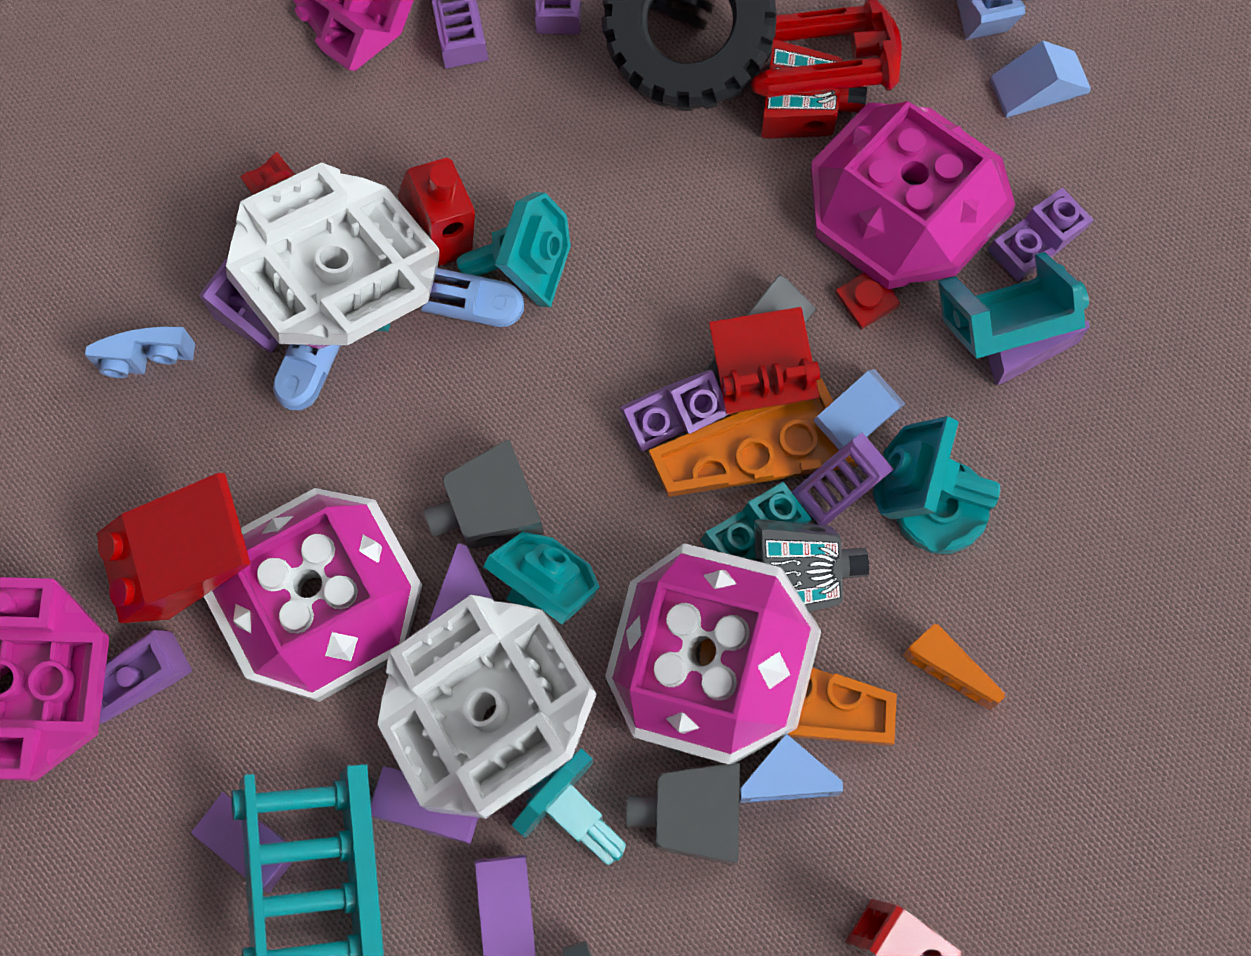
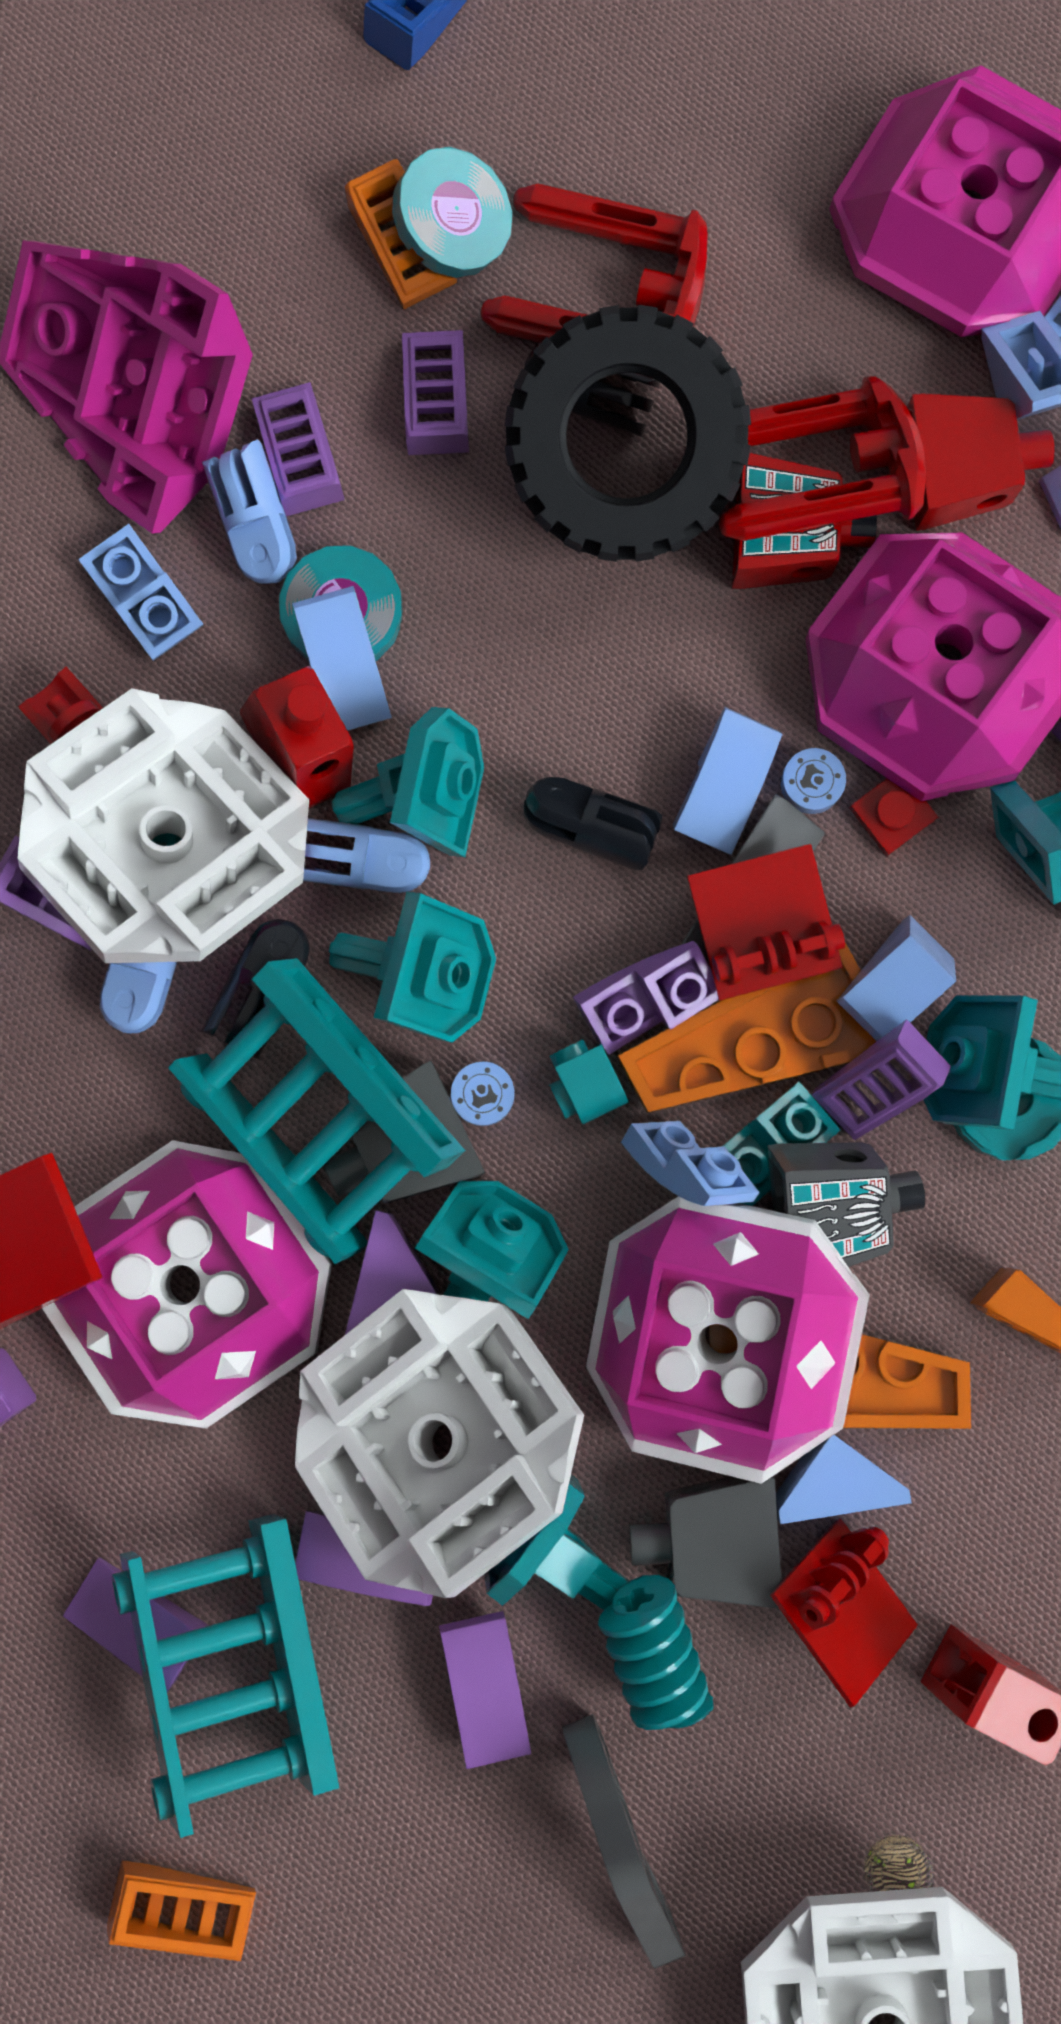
camera: 10 degrees left, 10 degrees up
(336, 110) = (141, 592): none -> light blue slope
(398, 371) = (269, 942): none -> black arm
(421, 61) = (252, 513): none -> light blue arm
(464, 456) = (374, 1095): none -> teal fence
(475, 158) = (343, 656): none -> light blue slope
(478, 130) = (337, 569): none -> teal tile
(517, 377) = (431, 970): none -> teal piece
(547, 473) = (482, 1093): none -> light blue tile
(623, 467) = (586, 1082): none -> teal plate
(638, 892) = (655, 1655): none -> teal piece
(645, 285) = (592, 821): none -> black arm
(686, 524) = (679, 1164): none -> light blue slope
(746, 264) = (727, 780): none -> light blue slope
(788, 870) = (846, 1607): none -> red hinge
(810, 270) = (813, 780): none -> light blue tile
(939, 56) = (973, 455): none -> red torso

